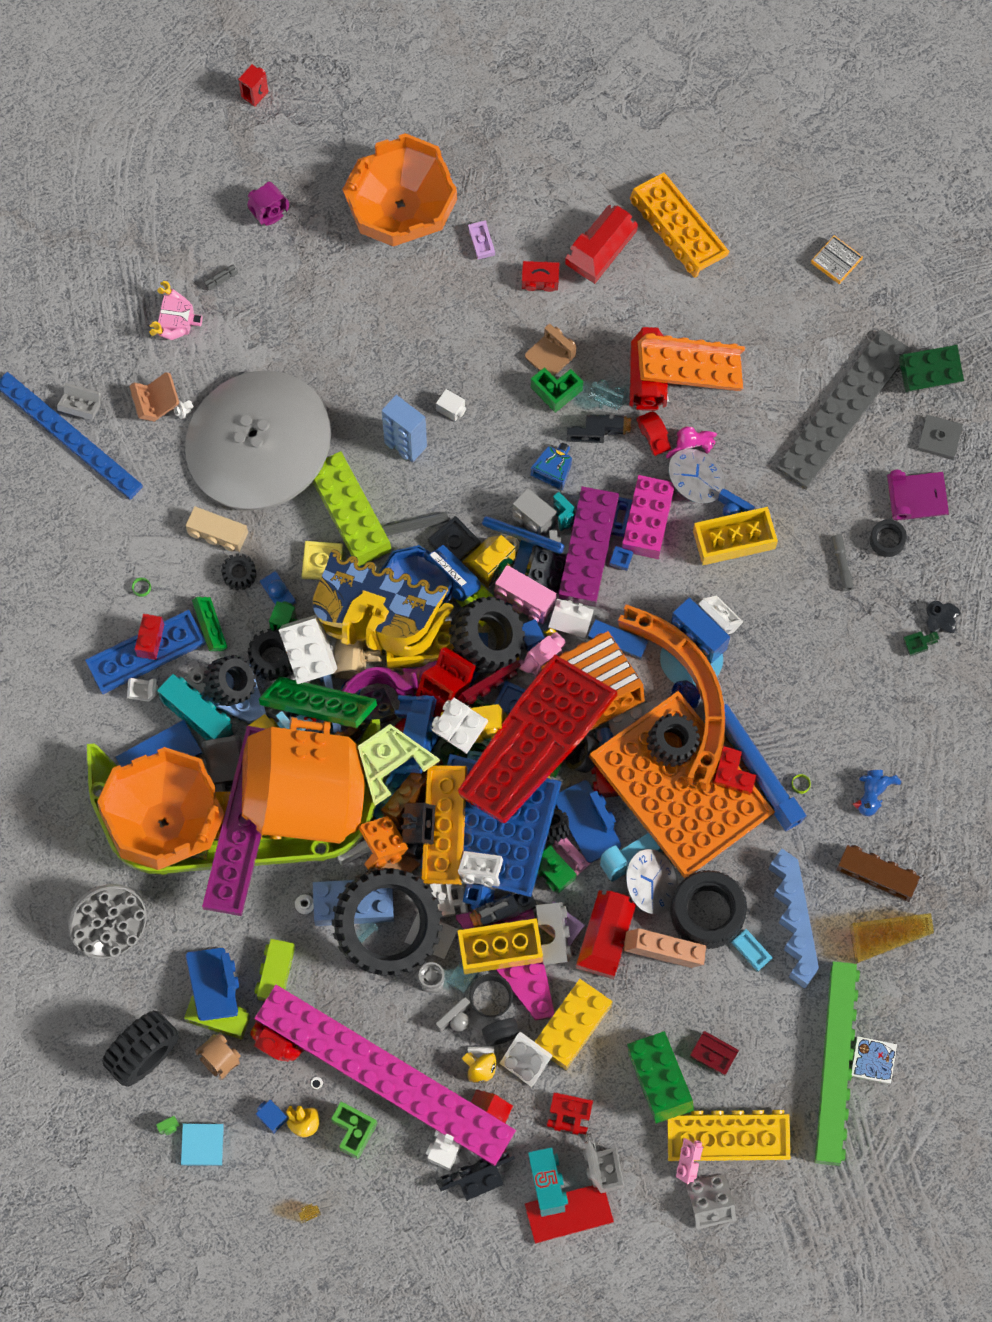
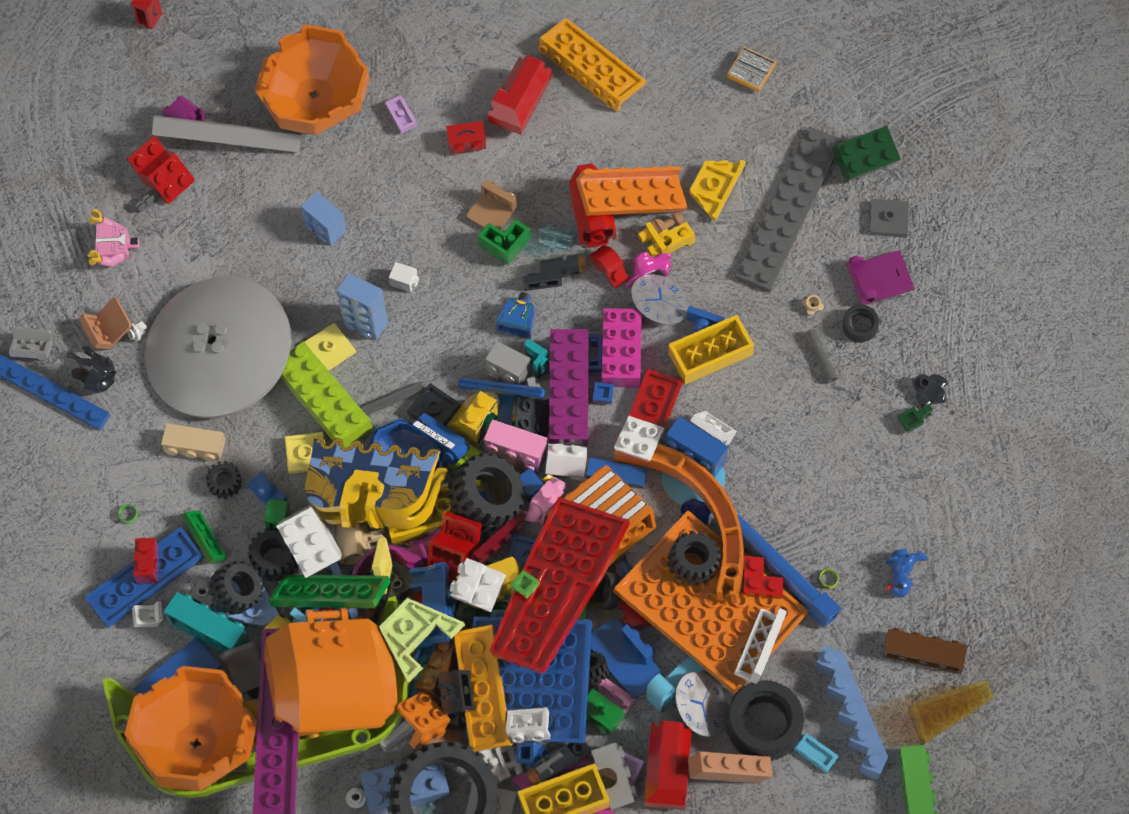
camera: 10 degrees left, 5 degrees down
(141, 440) = (101, 370): none -> black piece
(236, 251) = (160, 169): none -> red bracket
(306, 228) = (226, 133): none -> light grey tile
(366, 460) = (331, 346): none -> light yellow plate
(374, 682) = (382, 560): none -> light yellow plate
(384, 332) = (323, 219): none -> medium blue brick
(504, 733) = (525, 584): none -> bright green plate
(646, 611) = (640, 438): none -> white bracket
(670, 575) = (656, 398): none -> red plate
(712, 416) = (664, 239): none -> yellow hips
(726, 837) = (764, 653): none -> white fence
(775, 370) = (715, 185): none -> yellow wing
(845, 505) = (813, 299): none -> tan plate

